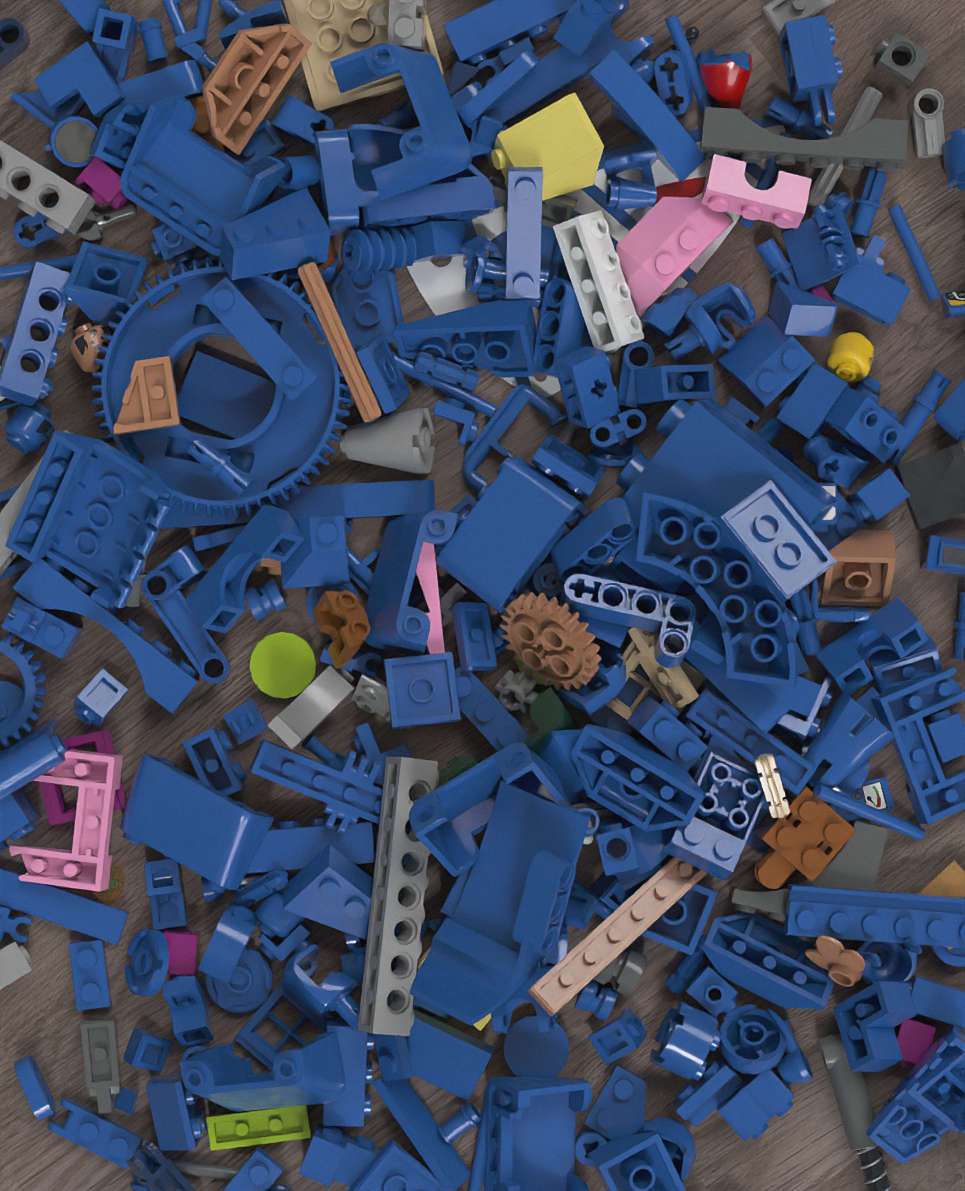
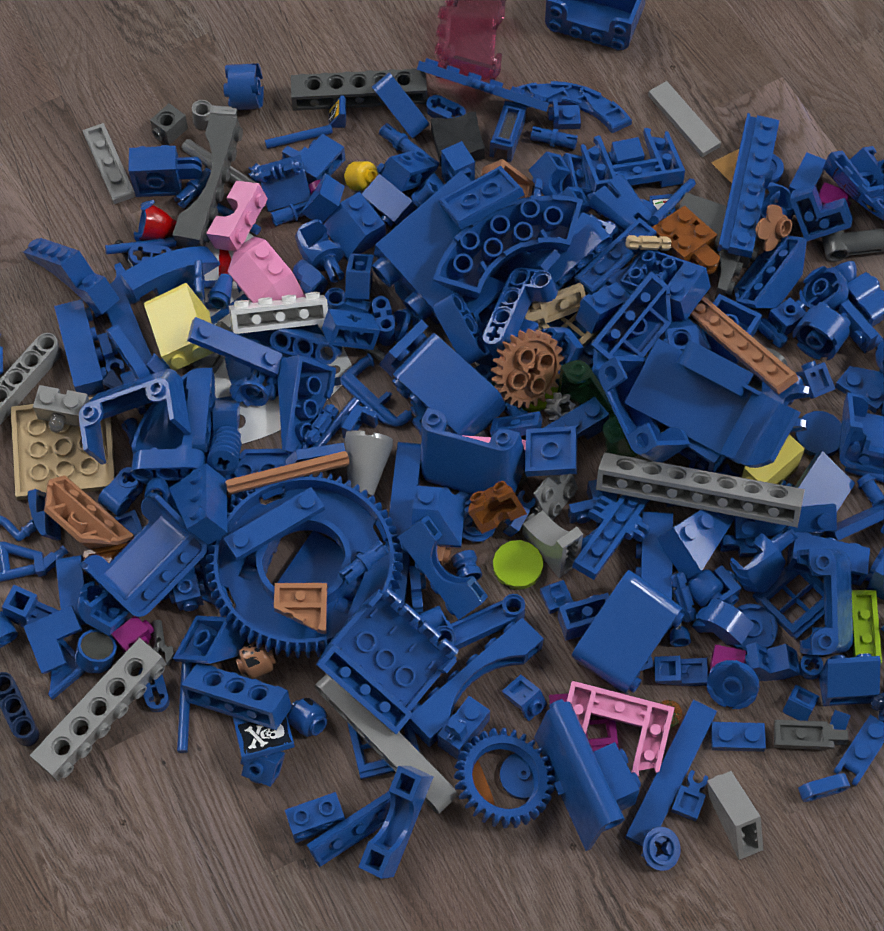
camera: 85 degrees left, 25 degrees down
(152, 39) = (37, 587): blue pin -> none
(868, 203) = (260, 156): blue axle -> none

